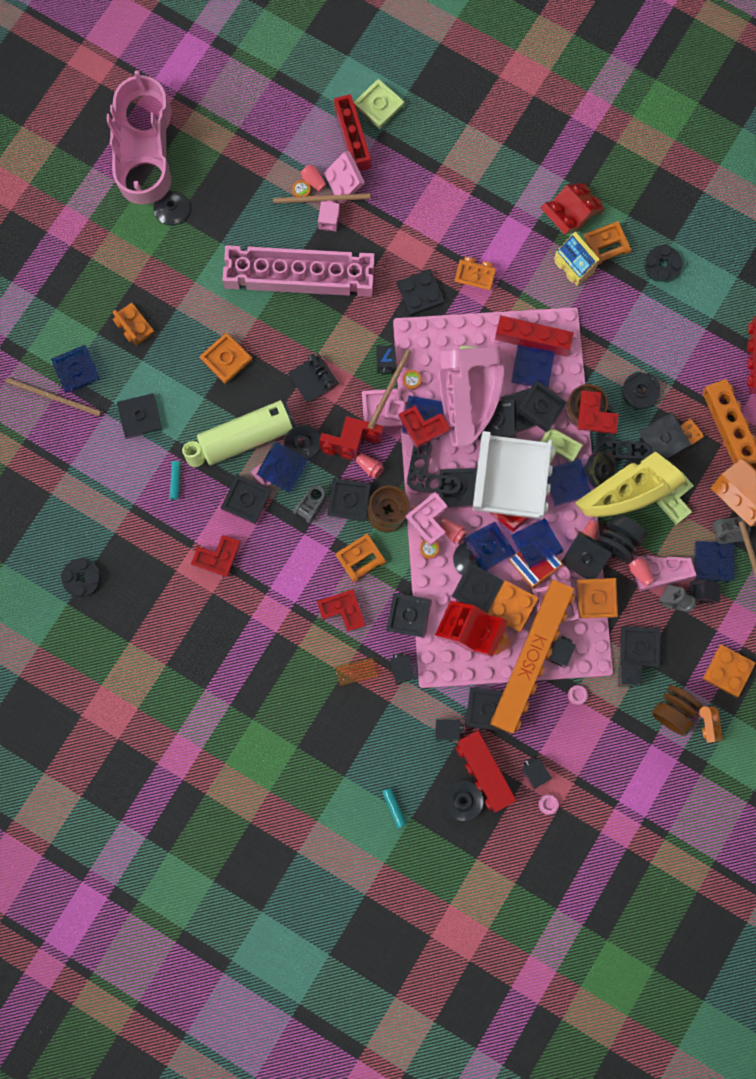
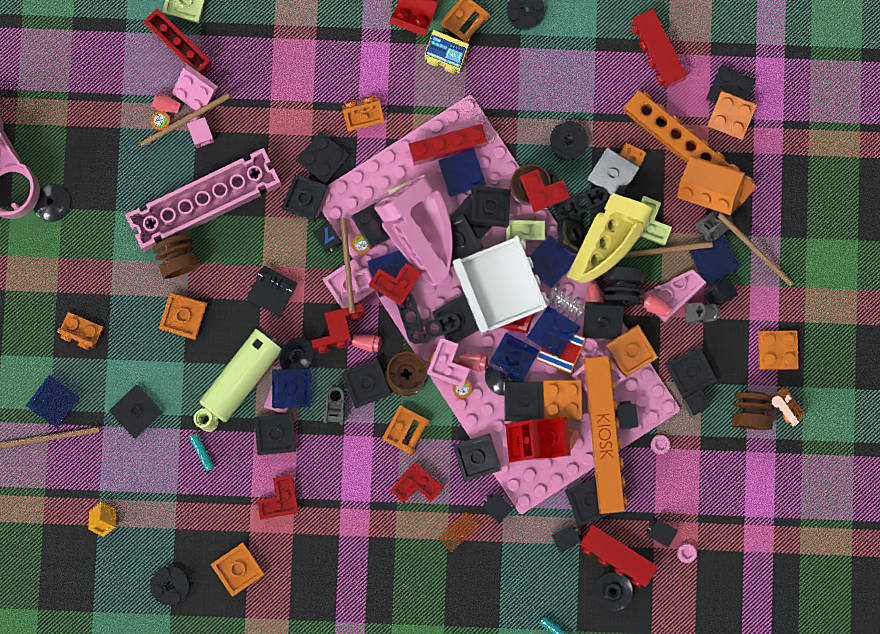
camera: 30 degrees left, 5 degrees up
(57, 489) = (102, 519): none -> light orange panel
(146, 596) = (237, 569): none -> orange plate
(248, 304) = (175, 253): none -> reddish brown wheel
(386, 317) = (305, 198): none -> black plate
(427, 369) = (370, 226): none -> black plate
(562, 524) = (565, 302): none -> clear piece
(675, 528) = (669, 249): none -> medium nougat axle

